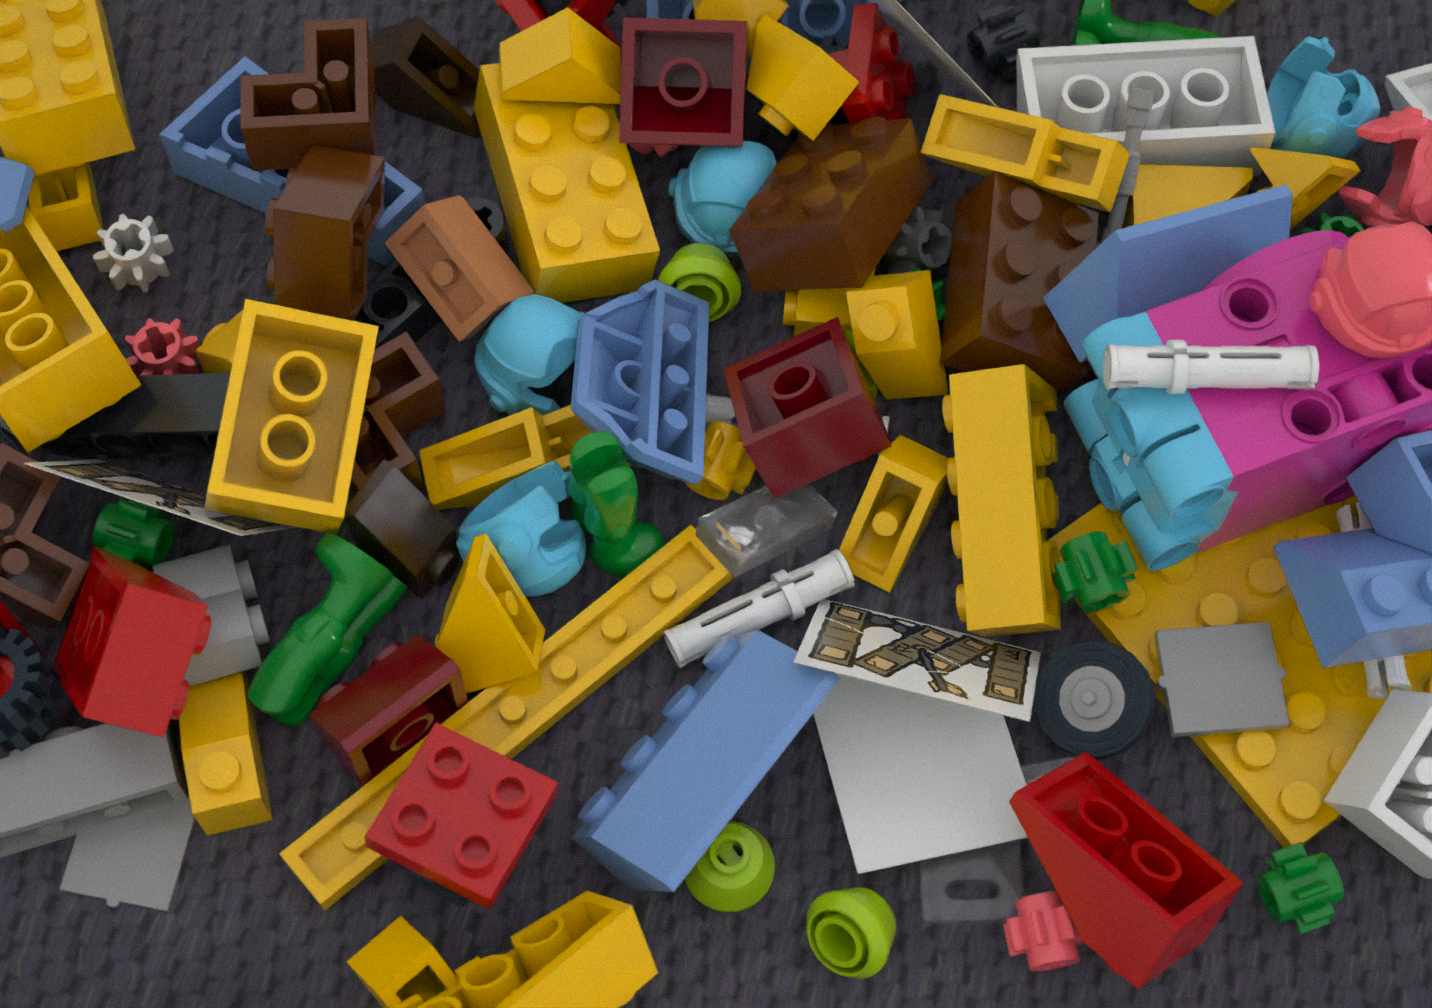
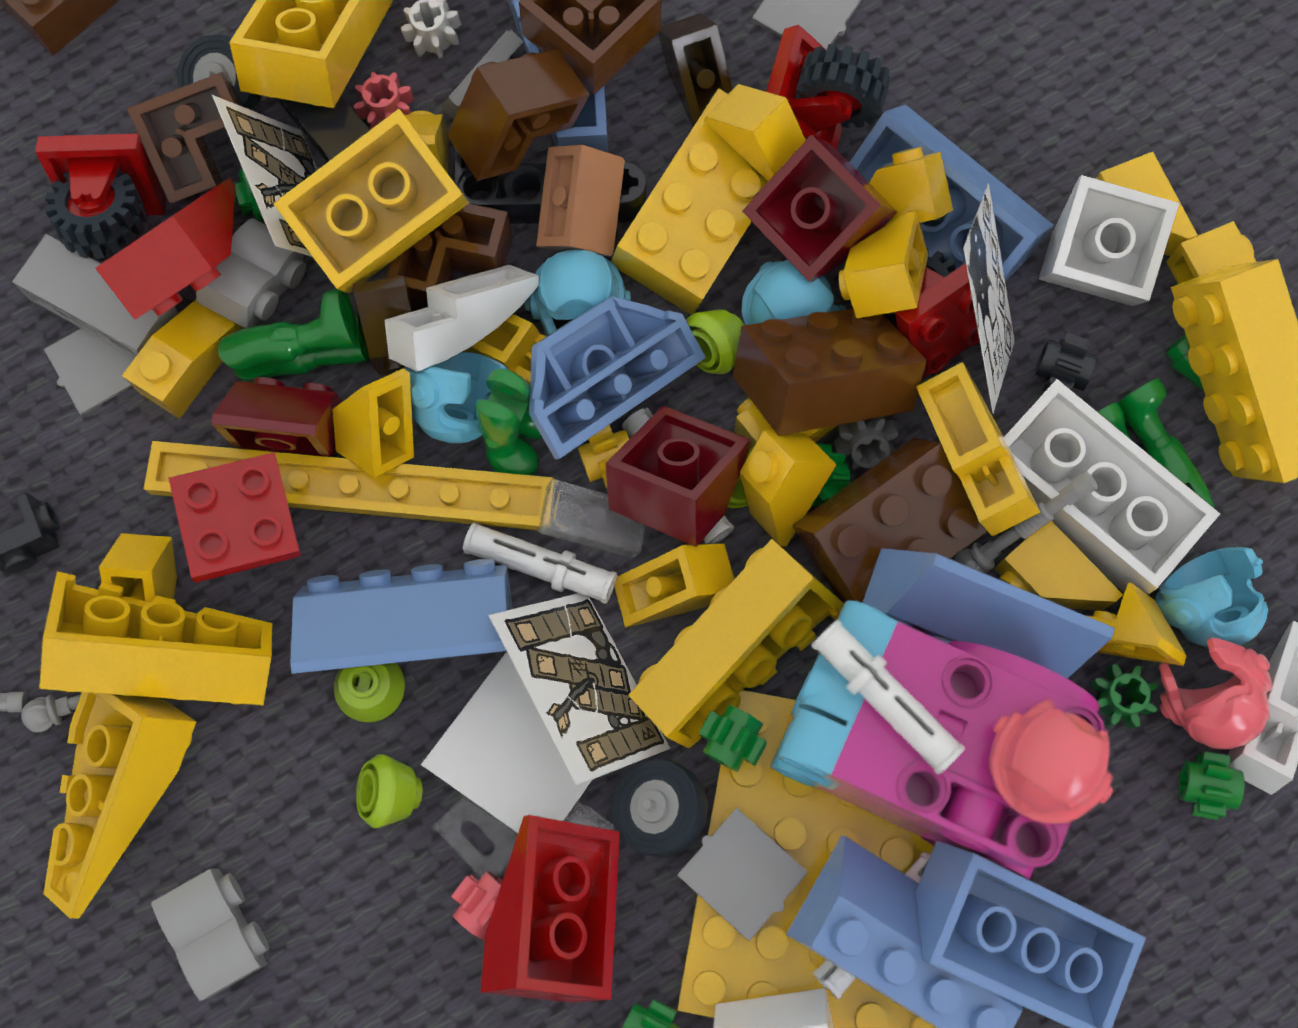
camera: 50 degrees right, 10 degrees up
(231, 250) = (499, 52): none -> light grey tile
(463, 458) = (457, 316): none -> white slope

